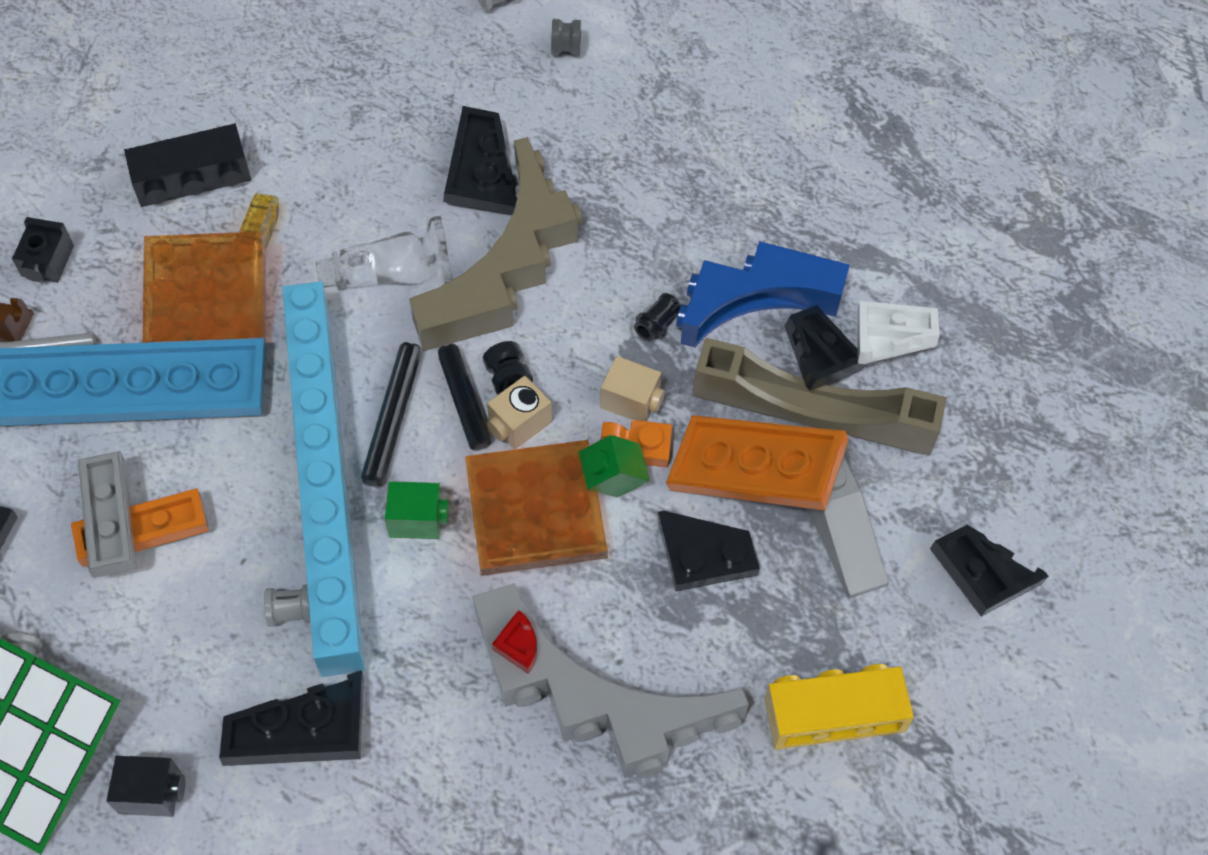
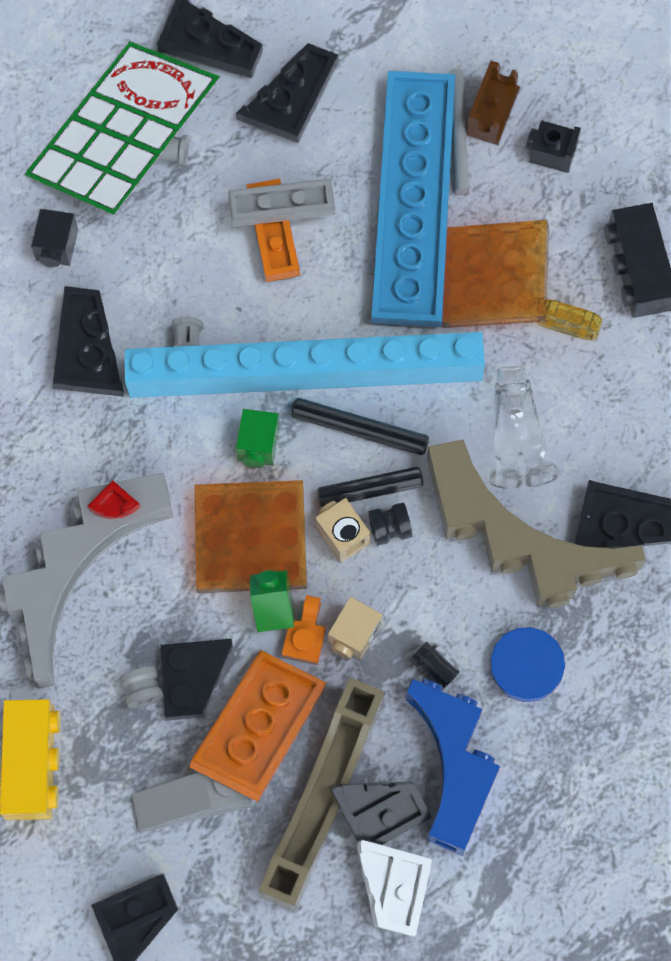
camera: 100 degrees right, 10 degrees up
(642, 241) = (527, 664): none -> blue tile
(731, 595) = (141, 687): none -> light grey wheel

